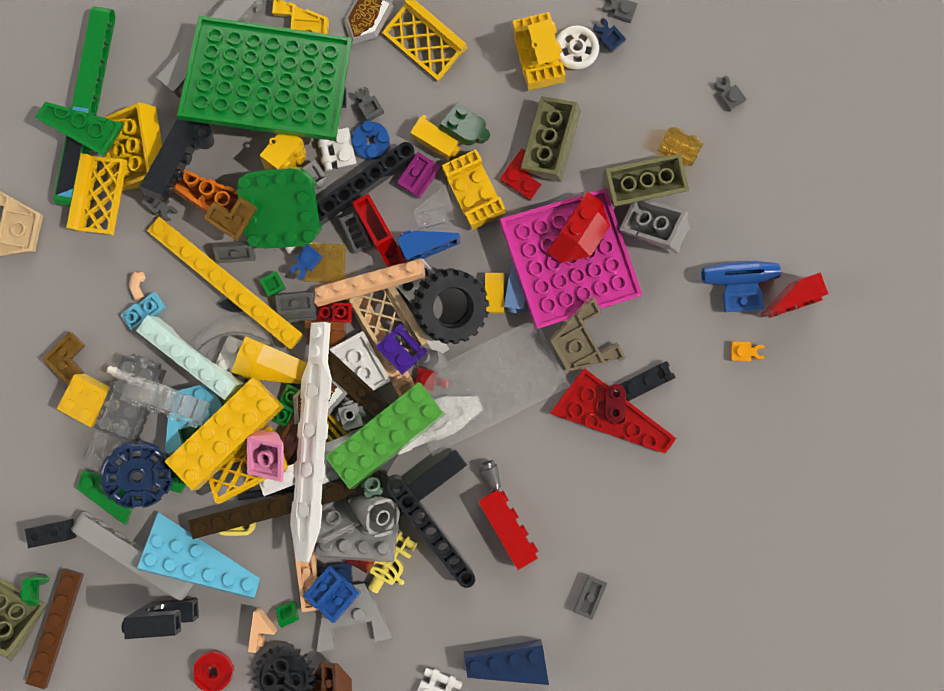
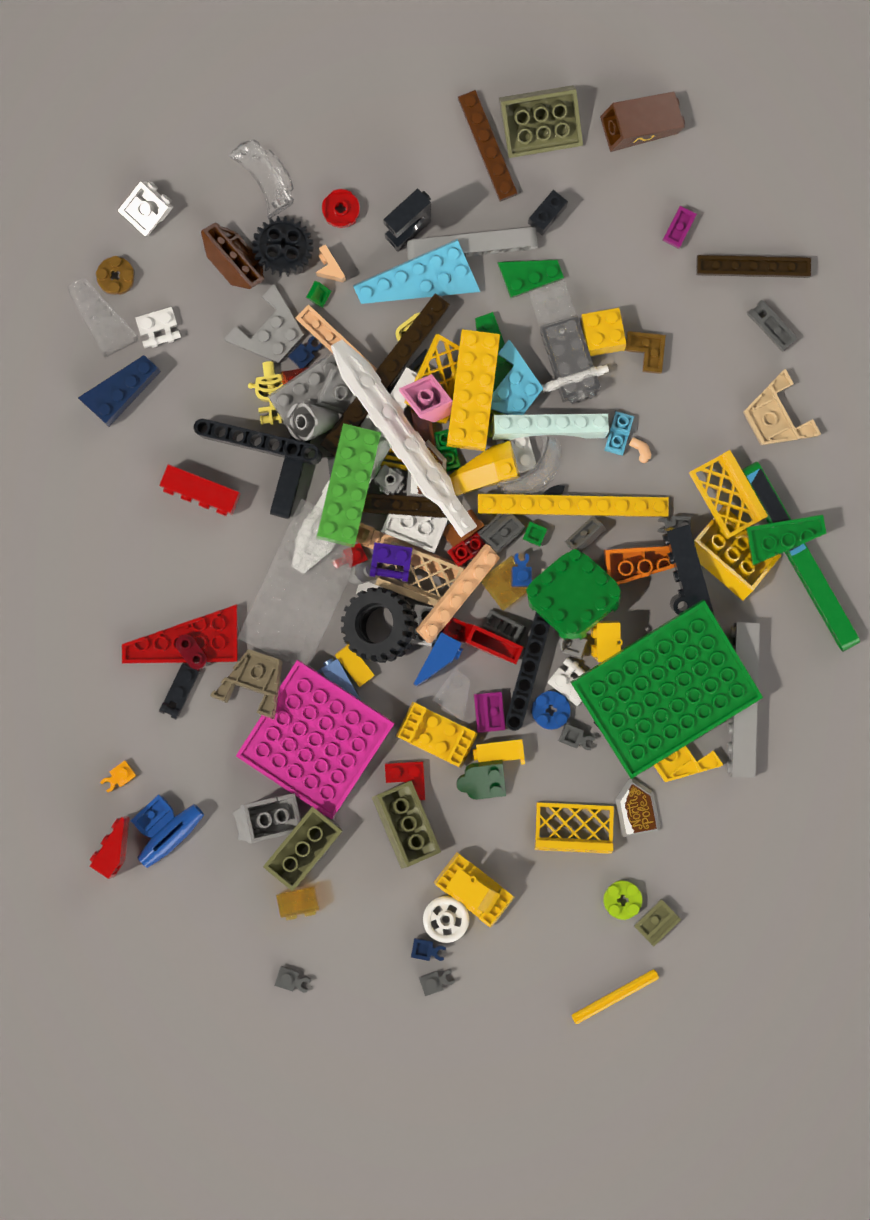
camera: 145 degrees right, 0 degrees up
(30, 589) = (527, 157): green plate -> none
(128, 466) = (524, 312): dark blue plate -> none
(165, 400) = (535, 380): clear wedge -> none
(232, 222) = (599, 553): pearl gold plate -> none
(331, 594) = (296, 335): blue slope -> none
(371, 482) = (329, 444): sand green plate -> none
(490, 473) = (246, 521): dark grey cone -> none
(581, 231) = (323, 766): red wedge -> none
(590, 597) = (95, 488): dark grey plate -> none

